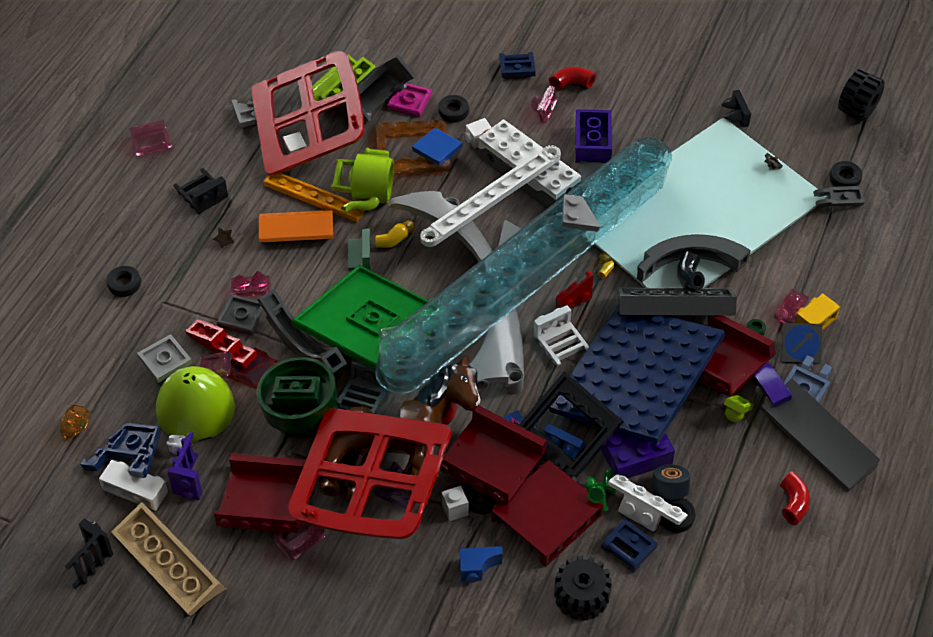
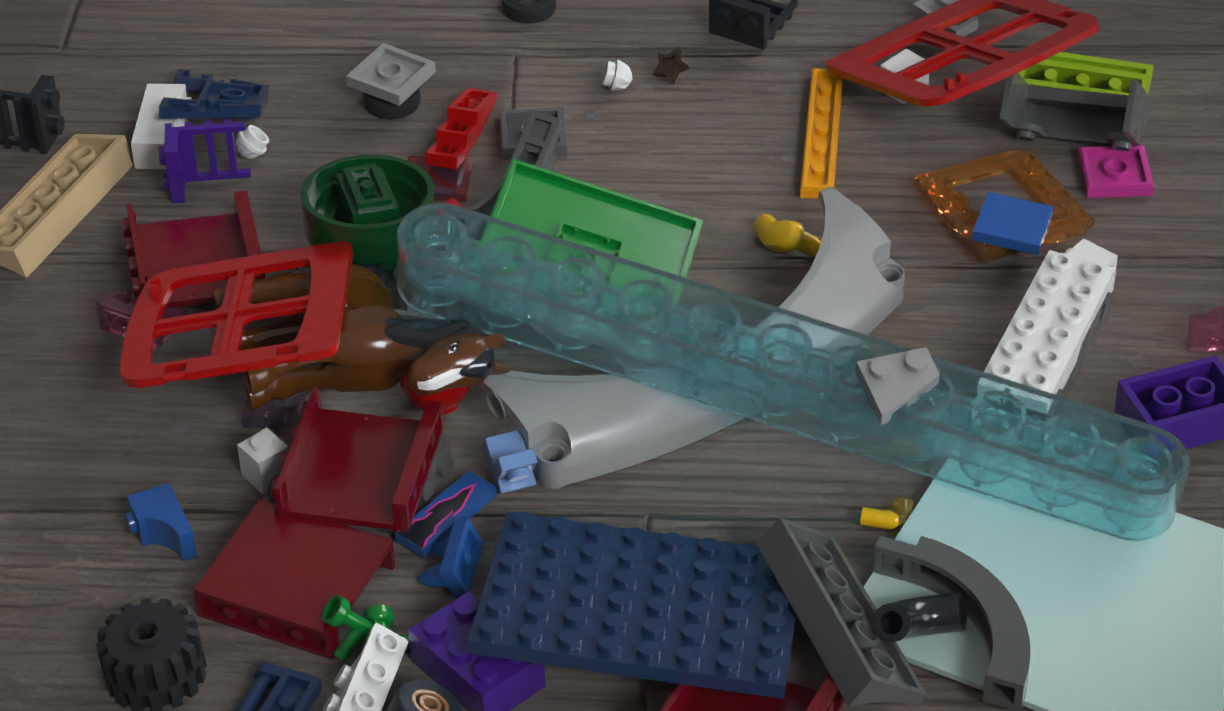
camera: 70 degrees right, 10 degrees down
(74, 421) = (244, 36): clear orange rock -> none
(198, 407) = (326, 120): lime piece -> none
(217, 363) = (411, 136): clear pink tile -> none
(218, 263) = (616, 75): none -> white plate
(250, 286) = (593, 122): clear pink tile -> none
(296, 226) = (738, 127): orange slope -> none
(359, 251) = (733, 215): sand green panel -> none
(368, 179) = (875, 163): lime piece -> none
(453, 100) = (1131, 212): black tyre -> none
(489, 196) = (909, 290): white plate -> none
(506, 398) = (509, 462): none -> medium blue brick
(555, 326) = (694, 479): white plate -> none
(576, 292) = (785, 484): red wing -> none
(590, 407) = (401, 570): black hinge -> none

